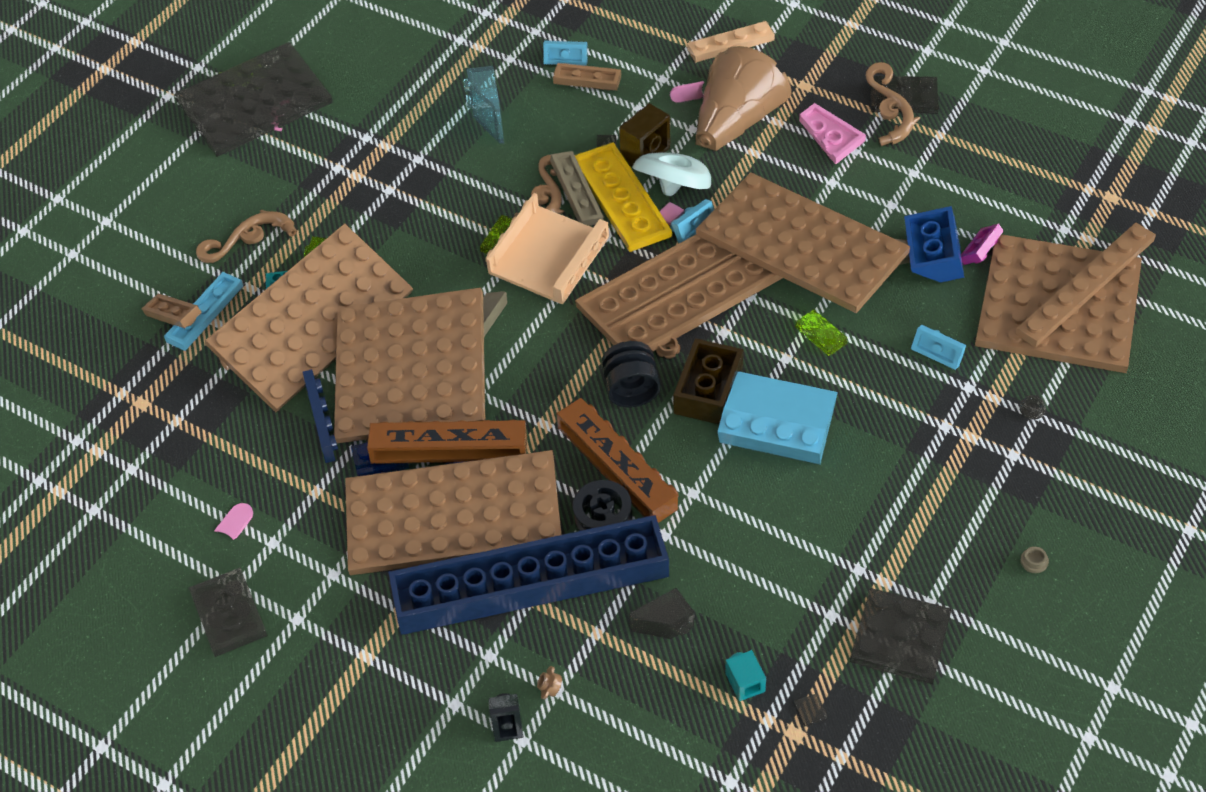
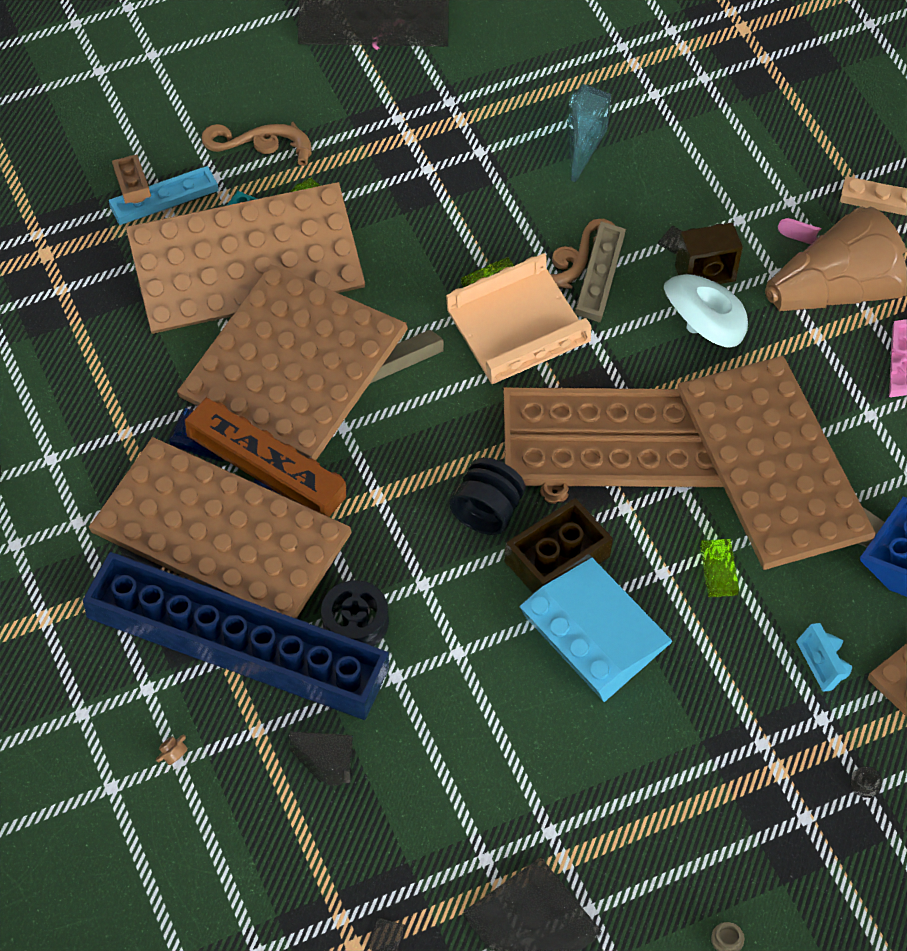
camera: 30 degrees right, 5 degrees up
(235, 520) = (36, 417): bright pink piece -> none
(323, 424) = (178, 365): dark blue plate -> none
(505, 717) = (107, 754): black slope -> none
(565, 52) = (710, 118): medium azure tile -> none
(587, 76) = (712, 156): medium nougat plate -> none
(617, 459) = (409, 576): dark orange brick -> none
(623, 197) = (639, 306): yellow plate -> none
(671, 212) = (675, 351): bright pink piece -> none
(686, 224) = (680, 371): medium azure tile -> none
(745, 675) = (350, 862): teal brick -> none

